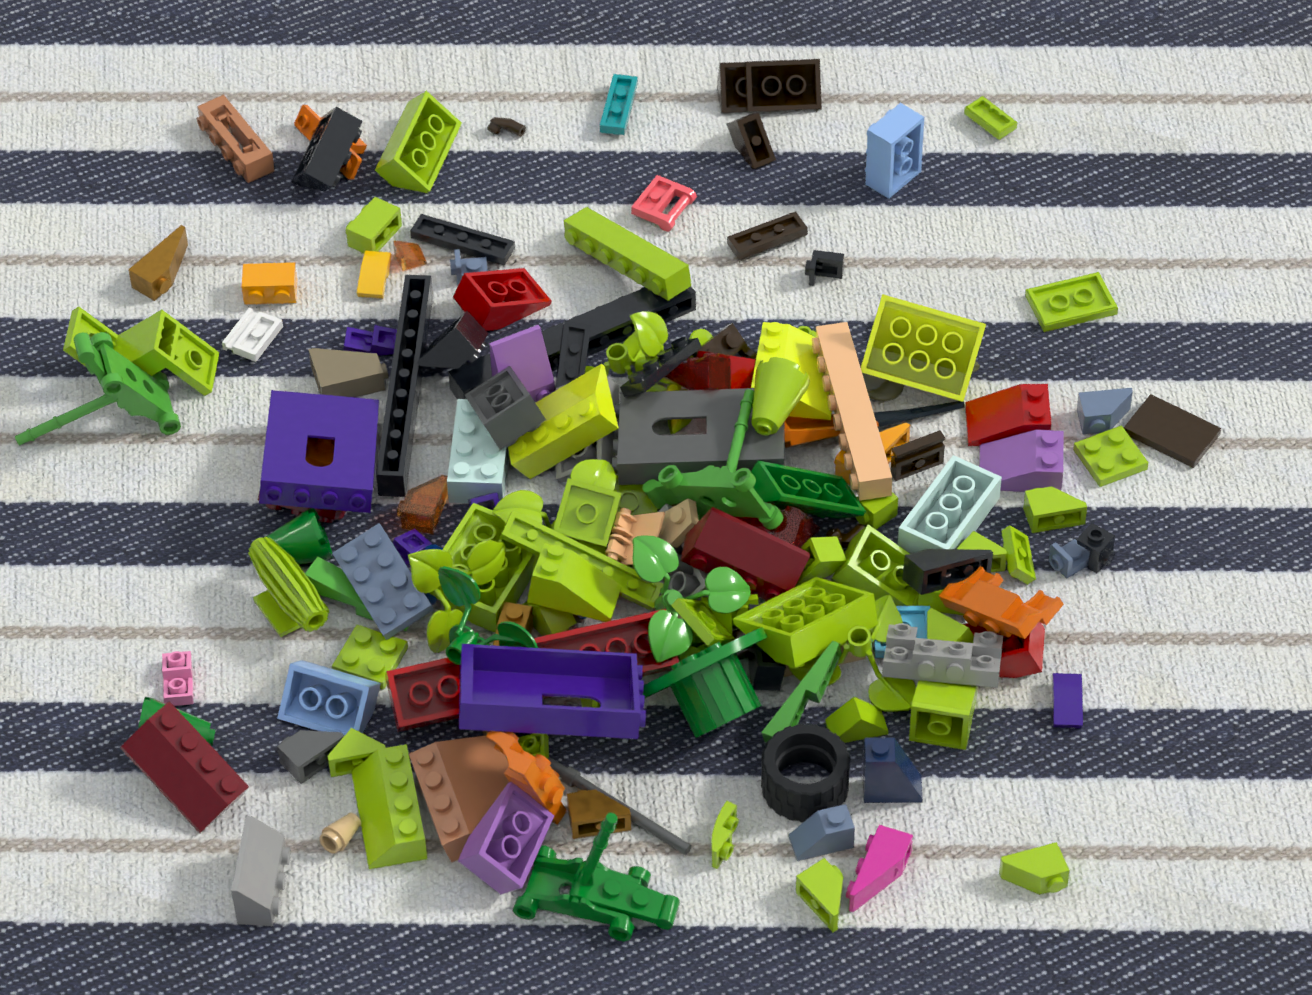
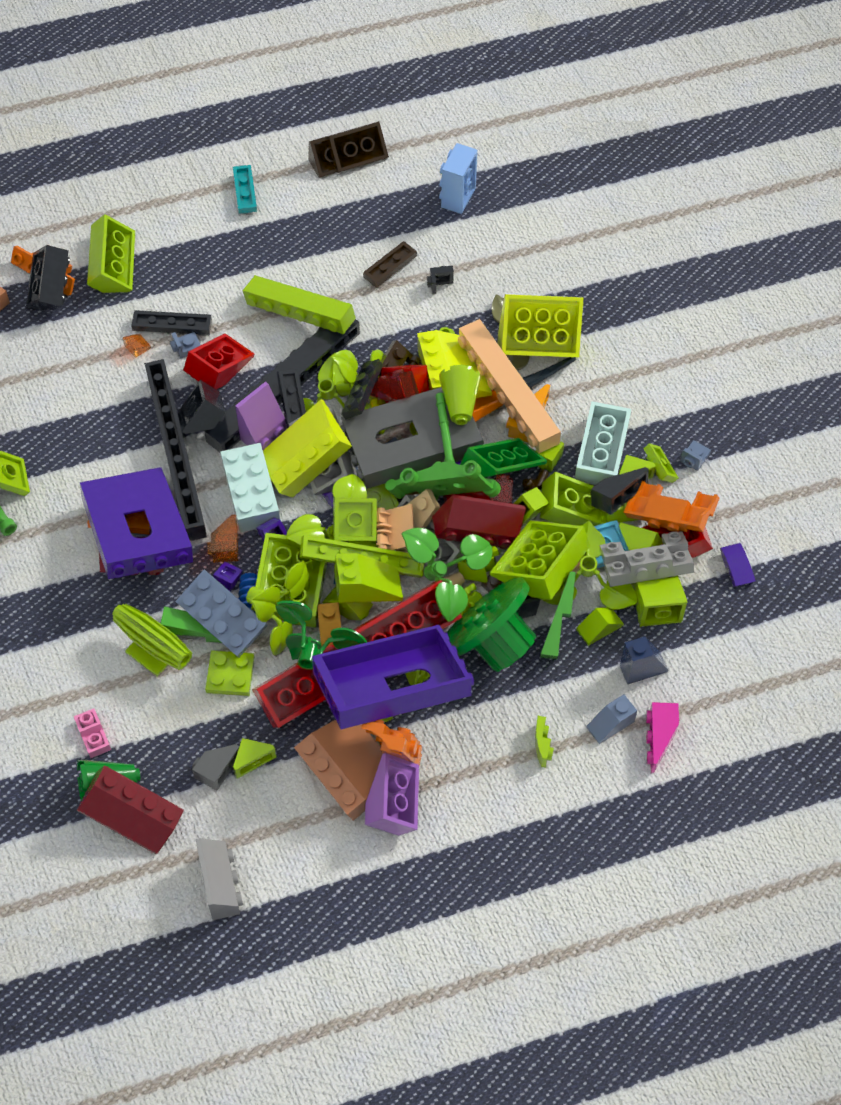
camera: 20 degrees left, 10 degrees up
(252, 334) = (44, 438): white plate -> none
(269, 283) = (41, 394): light orange brick -> none
(304, 538) = (145, 595): green cone -> none
(327, 698) = (213, 718): light blue slope -> none
(338, 834) = (263, 824): tan cone -> none
(347, 372) = (126, 451): dark tan slope -> none
(373, 226) = (102, 329): lime brick -> none
(373, 274) = (116, 366): yellow slope -> none
(379, 341) = (138, 420): dark purple slope -> none
(389, 808) = (292, 793): lime slope -> none
(505, 407) = (262, 451): dark grey slope -> none
(508, 124) = (169, 223): dark brown arm -> none
(573, 778) = (416, 727): dark grey bar -> none
(590, 808) = (445, 752): pearl gold slope -> none
(595, 890) = (472, 815): green piece -> none
(656, 199) = (300, 254): coral plate -> none
(702, 621) = (468, 580): lime tile -> none
(751, 140) = (350, 193): dark brown slope -> none
(808, 745) = (586, 653): black tyre -> none
(822, 891) = (631, 765): lime slope -> none
(917, 455) = (564, 405): dark brown plate -> none
(990, 117) = (509, 136): lime plate -> none
(1008, 413) = (613, 359): red slope -> none
(1026, 460) = (638, 389): medium lavender slope -> none
(1036, 869) = (771, 702): lime slope -> none
(1052, 509) = (669, 422): lime slope -> none
(1071, 301) = (618, 260): lime tile -> none
(1100, 545) = (713, 439): black bracket -> none
(1102, 409) = (672, 337): sand blue slope -> none
(1110, 456) = (691, 370): lime plate -> none
(1172, 430) = (724, 340): dark brown tile -> none

